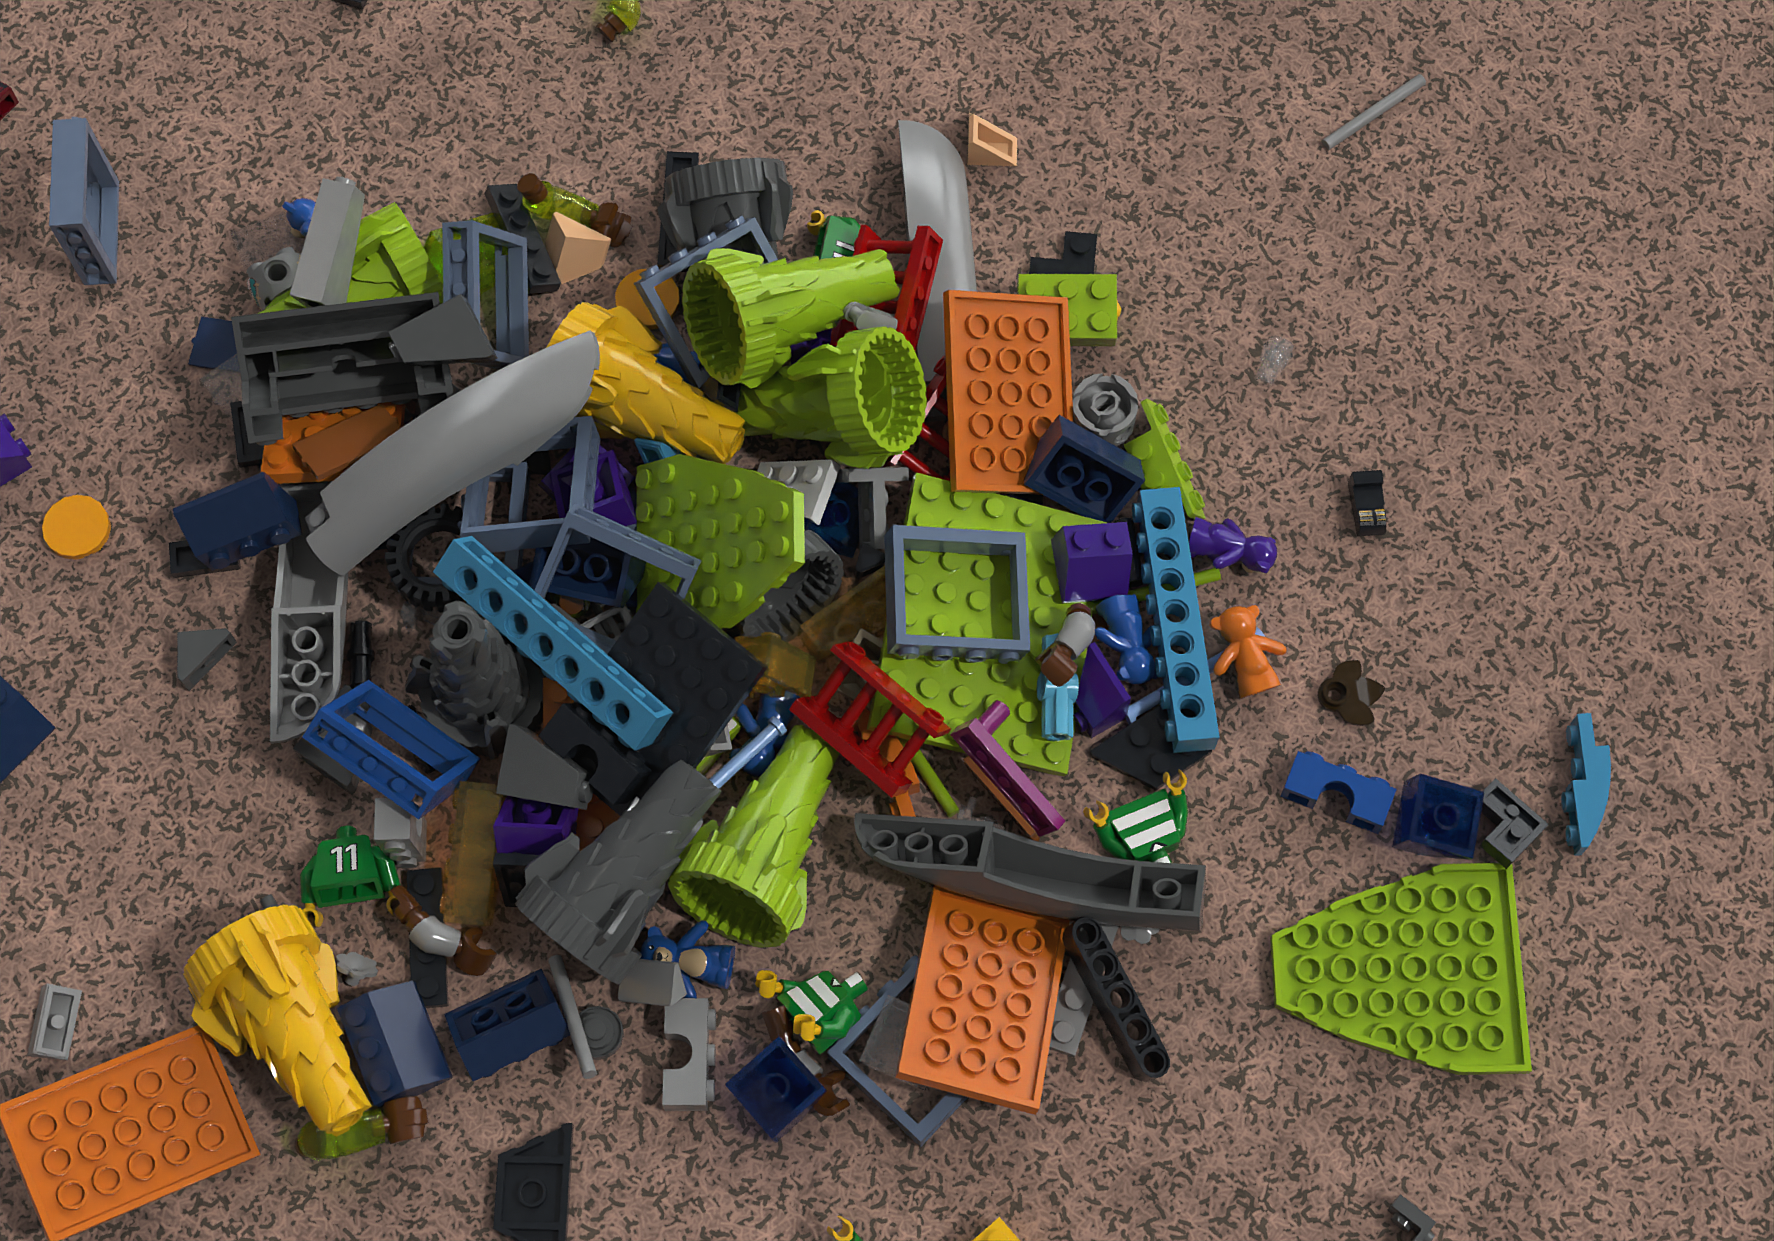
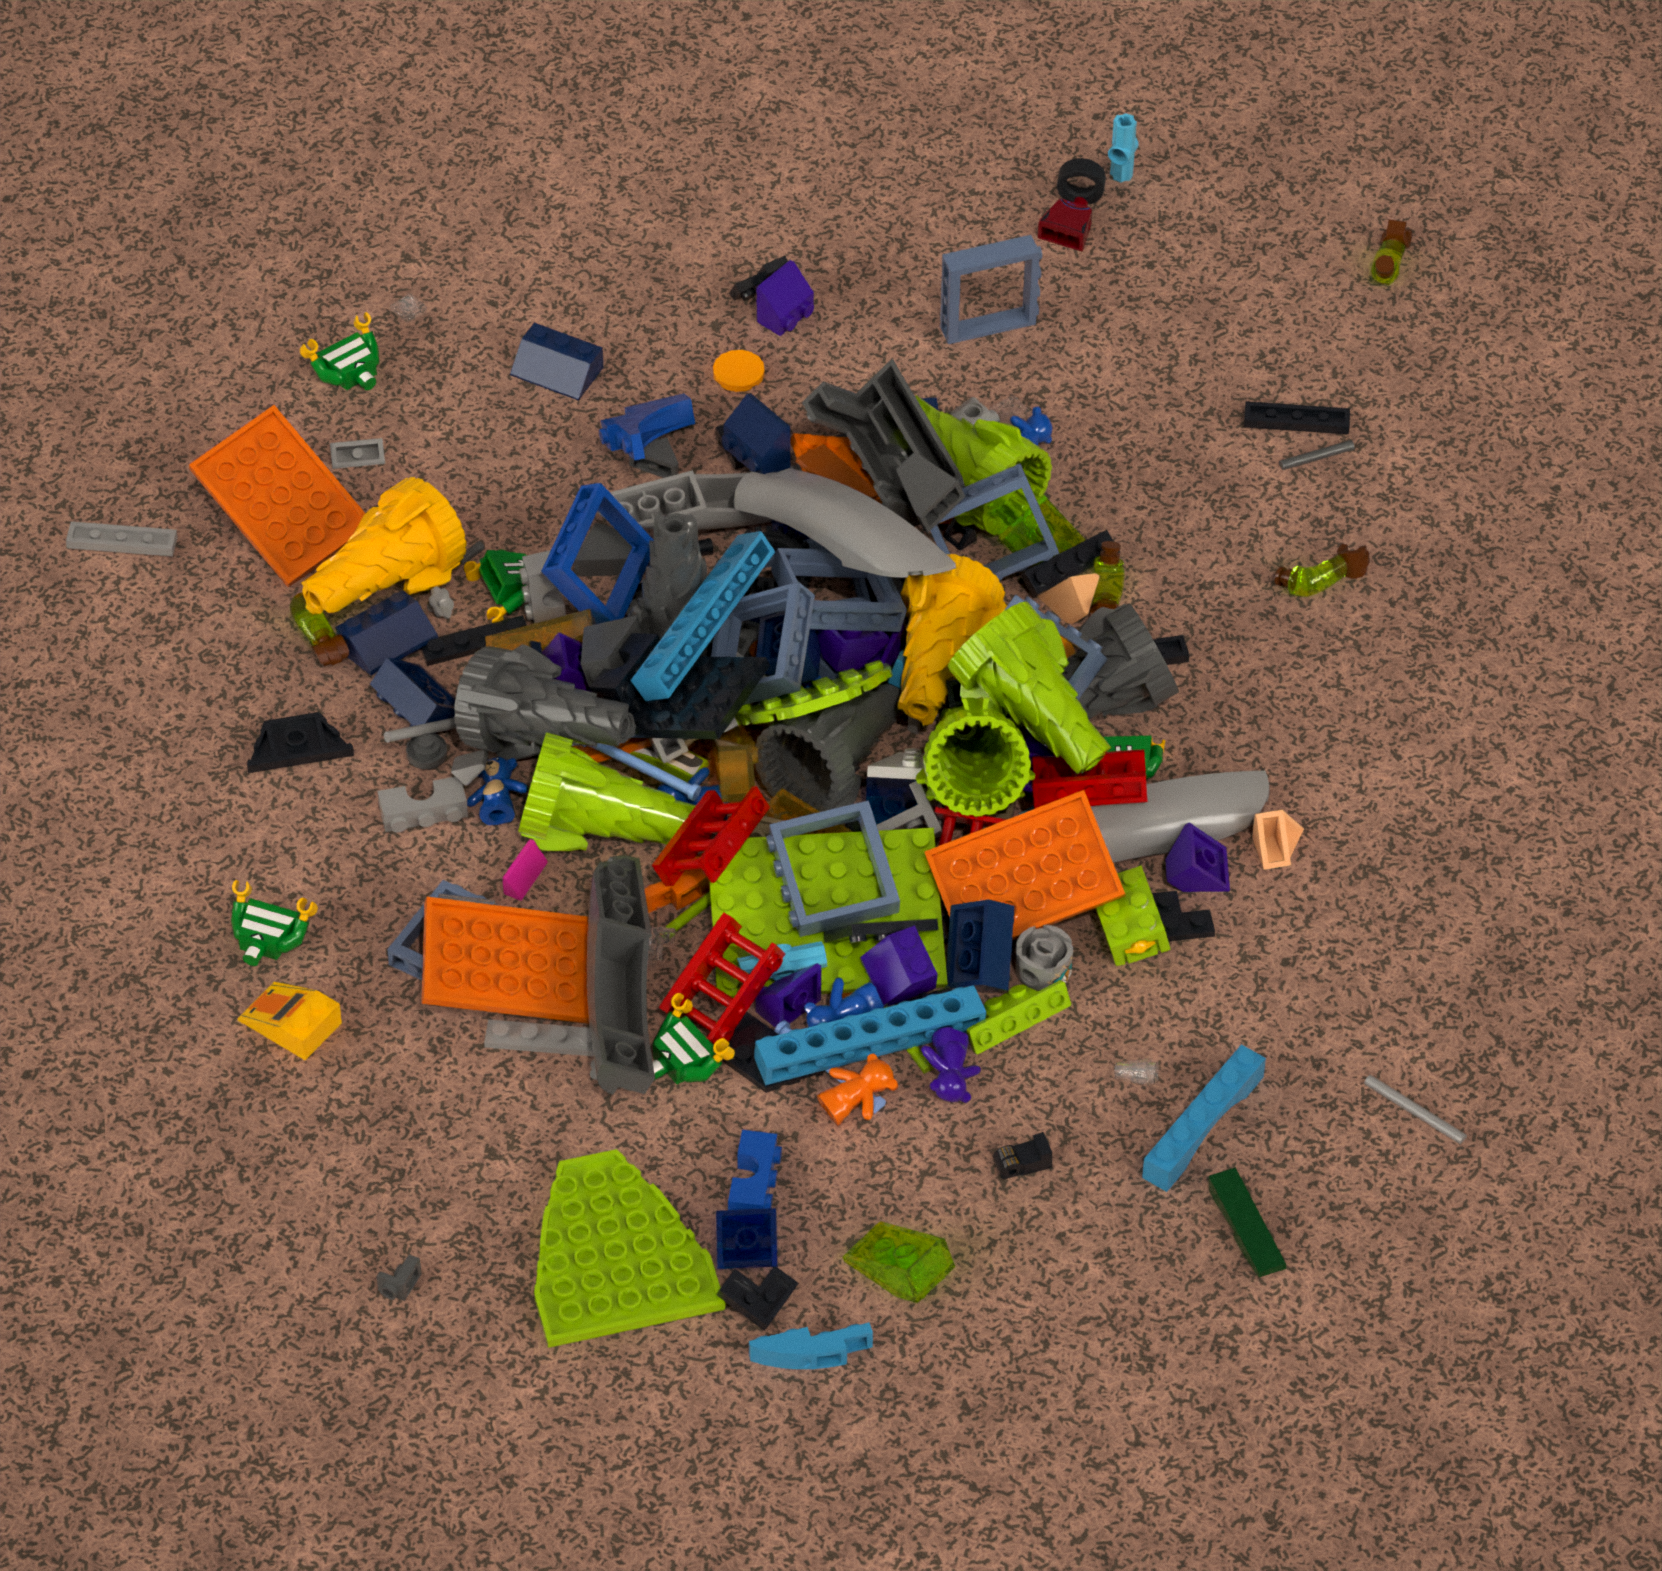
camera: 75 degrees right, 20 degrees down
(146, 659) = (645, 423): none -> blue arch
(329, 245) = (973, 406): light grey slope -> none
(440, 939) = (472, 631): reddish brown piece -> none
(776, 1089) = (401, 853): clear blue slope -> none
(779, 1025) = (430, 873): reddish brown piece -> none
(818, 1006) = (475, 866): torso -> none
(822, 953) = (524, 871): none -> dark pink slope
(868, 317) = (1044, 753): light grey bar -> none
(1000, 799) = (677, 950): dark orange piece -> none
(1002, 225) = (1197, 862): none -> dark purple slope
(1003, 772) = (714, 910): magenta piece -> none
(1040, 761) = (711, 956): none -> red fence
(1047, 572) = (878, 930): none -> black wing
(1072, 640) = (814, 946): piece -> none
(1131, 1009) = (538, 1038): black beam -> none
(1355, 691) = (847, 1179): dark brown plate -> none
(1387, 338) = (1178, 1145): none -> dark azure arch
(1481, 665) = (901, 1260): none -> clear neon green slope
(1492, 308) = (1245, 1220): none -> dark green slope

